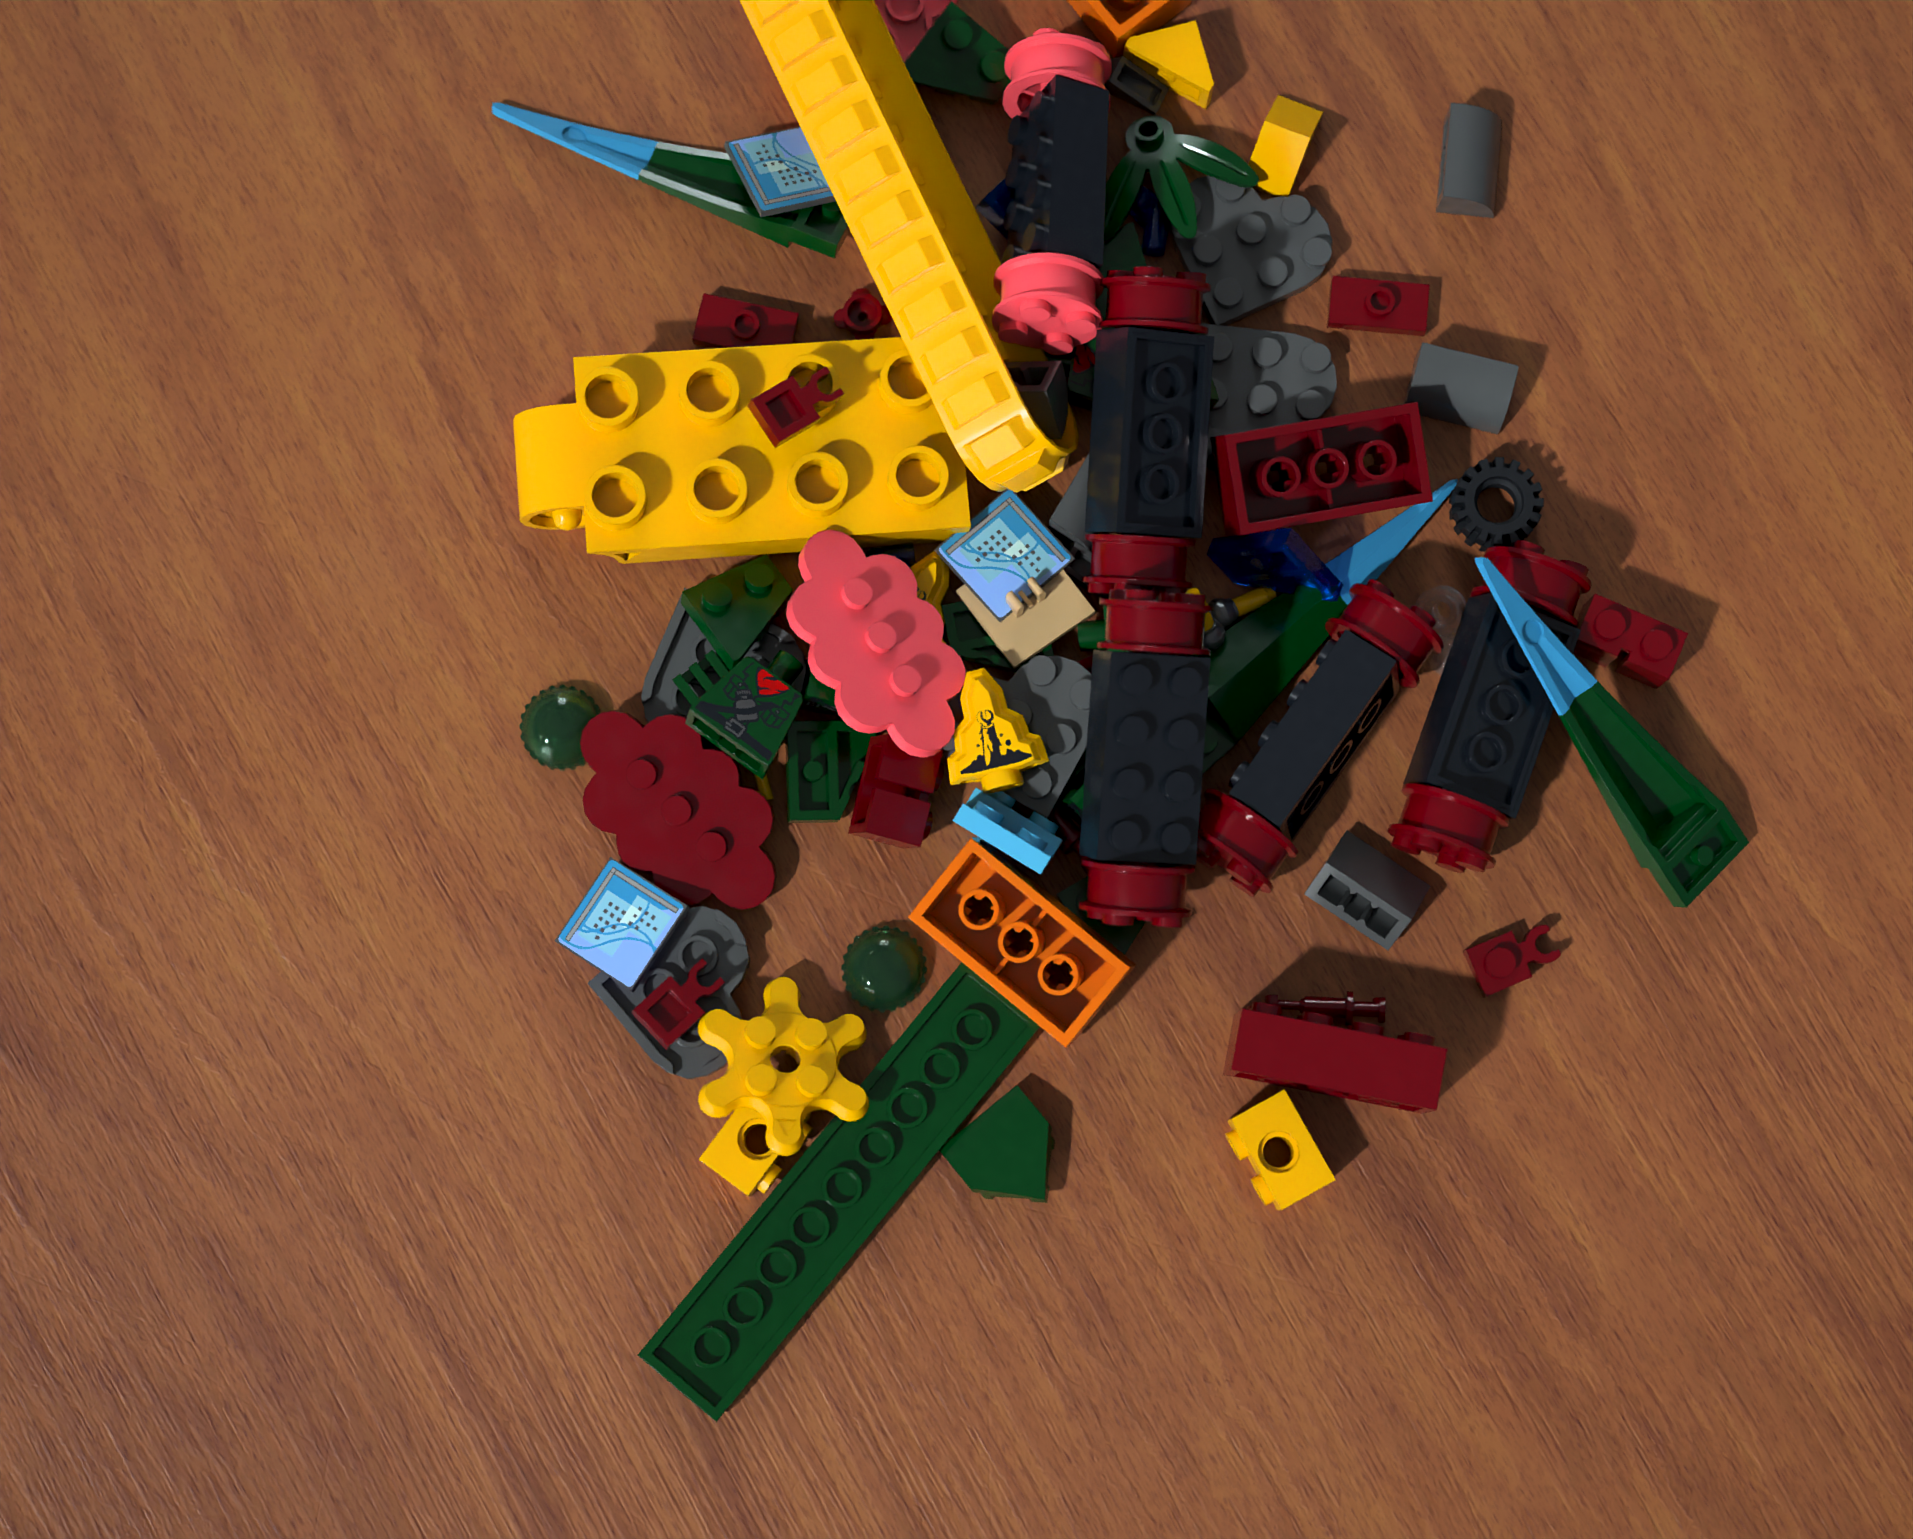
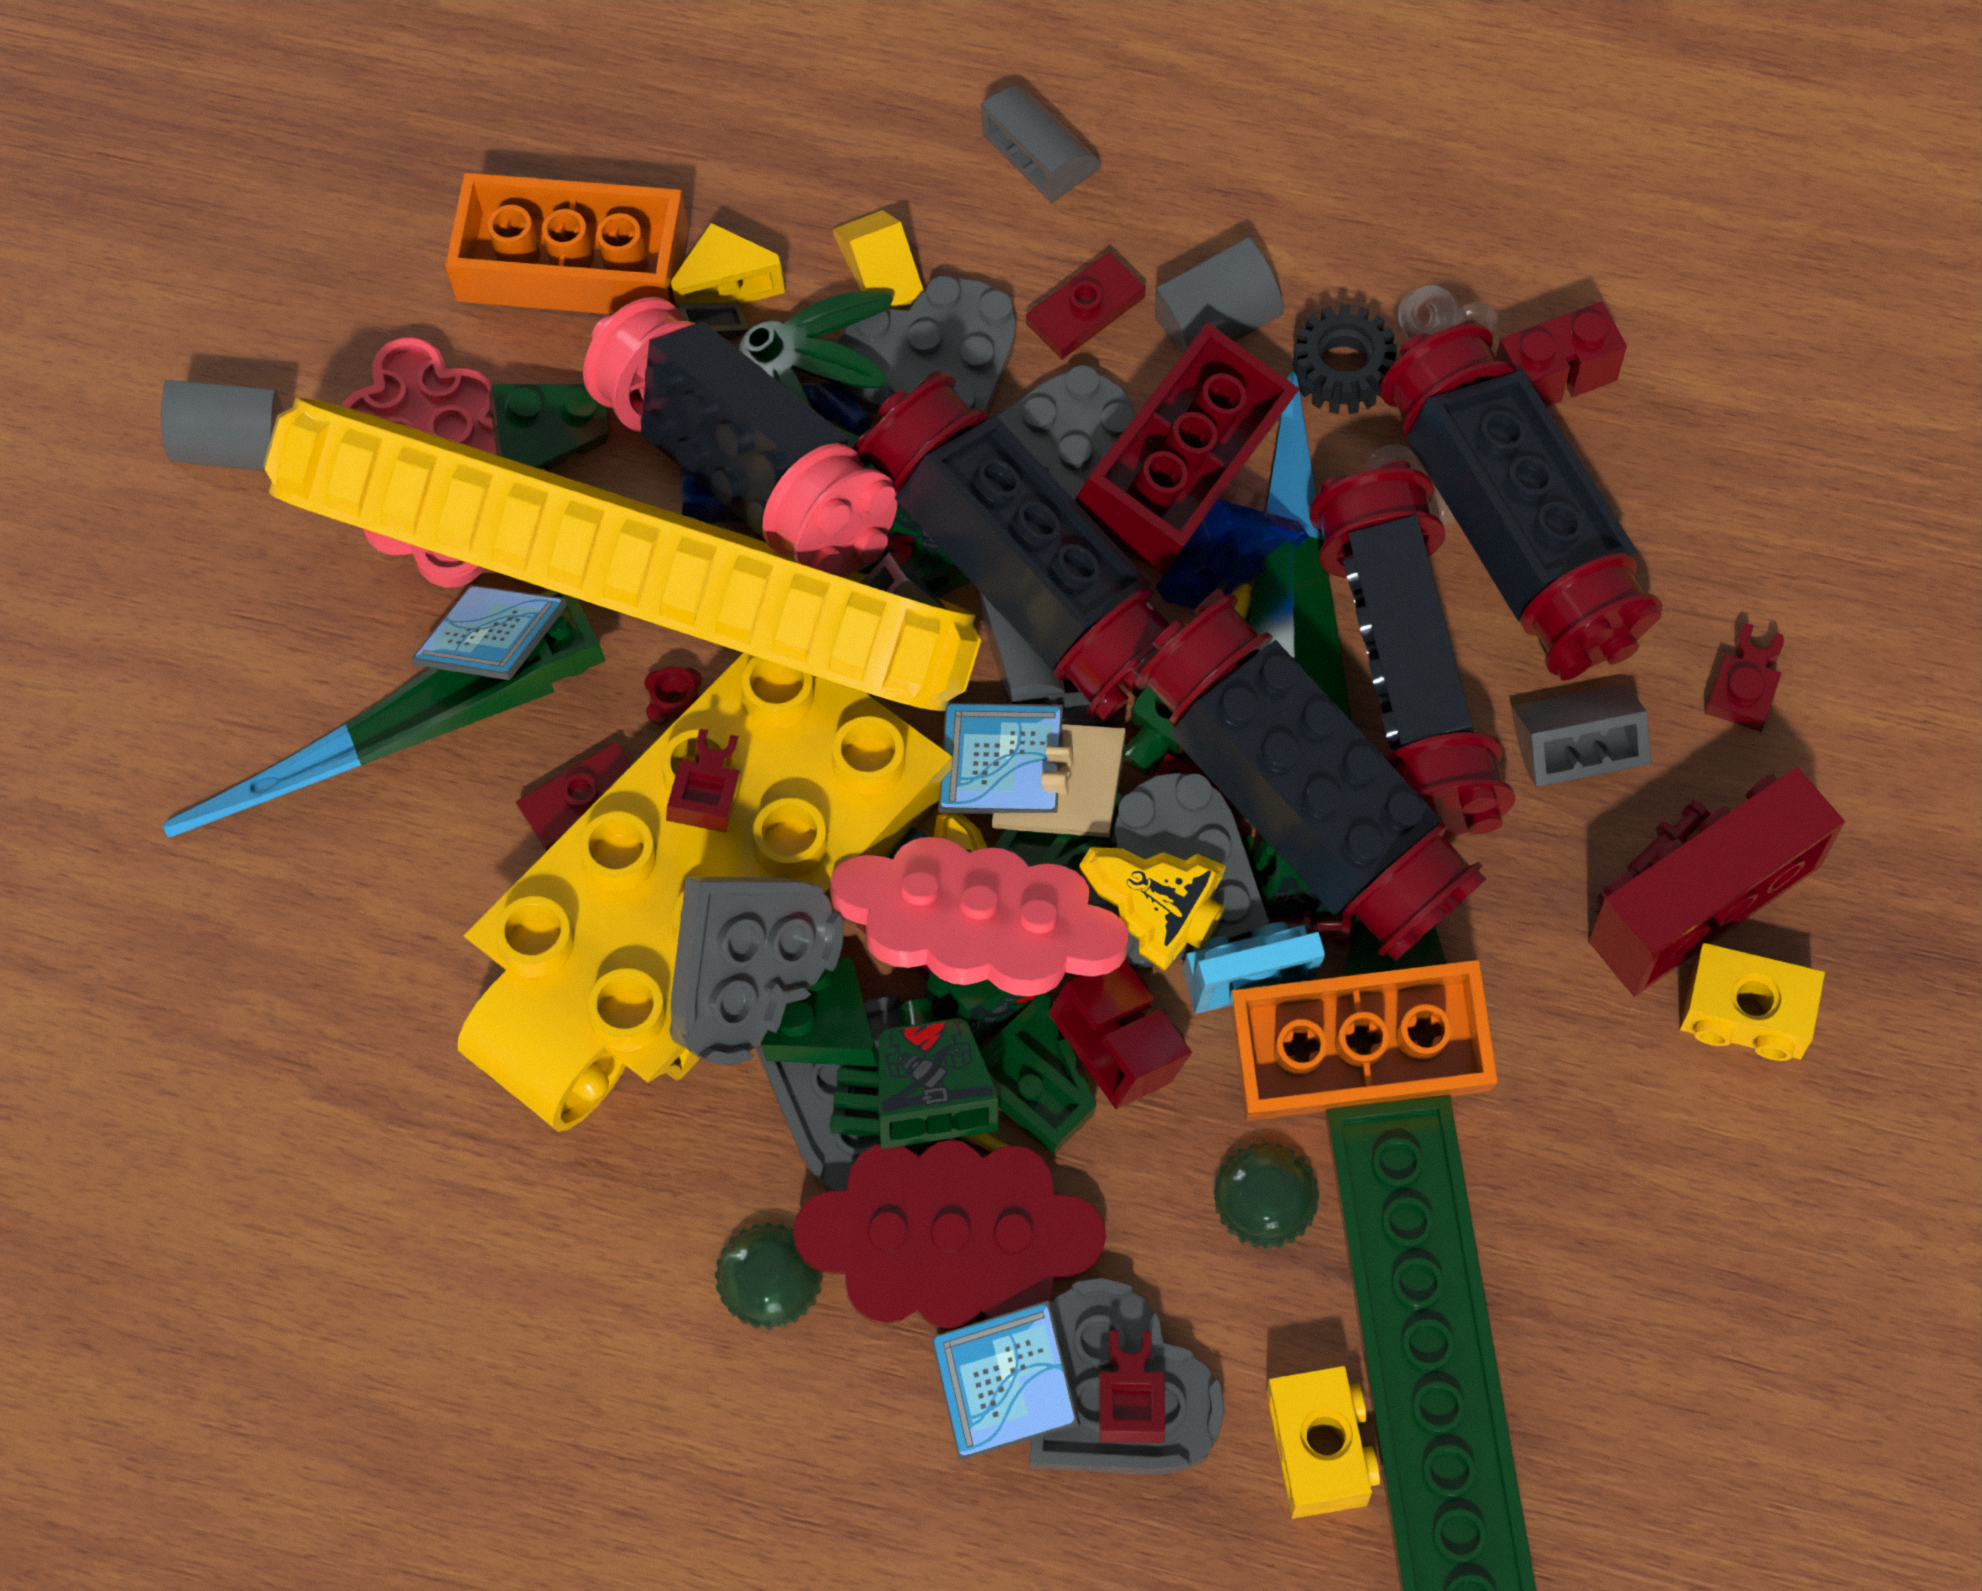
camera: 45 degrees left, 15 degrees down
(711, 535) = (745, 956): none -> dark grey plate
(776, 1095) = (1278, 1382): yellow plate -> none
(1005, 1150) = (1535, 1236): dark green slope -> none
(1606, 561) = (1443, 312): none -> clear plate
(1659, 805) = (1731, 446): dark green plate -> none

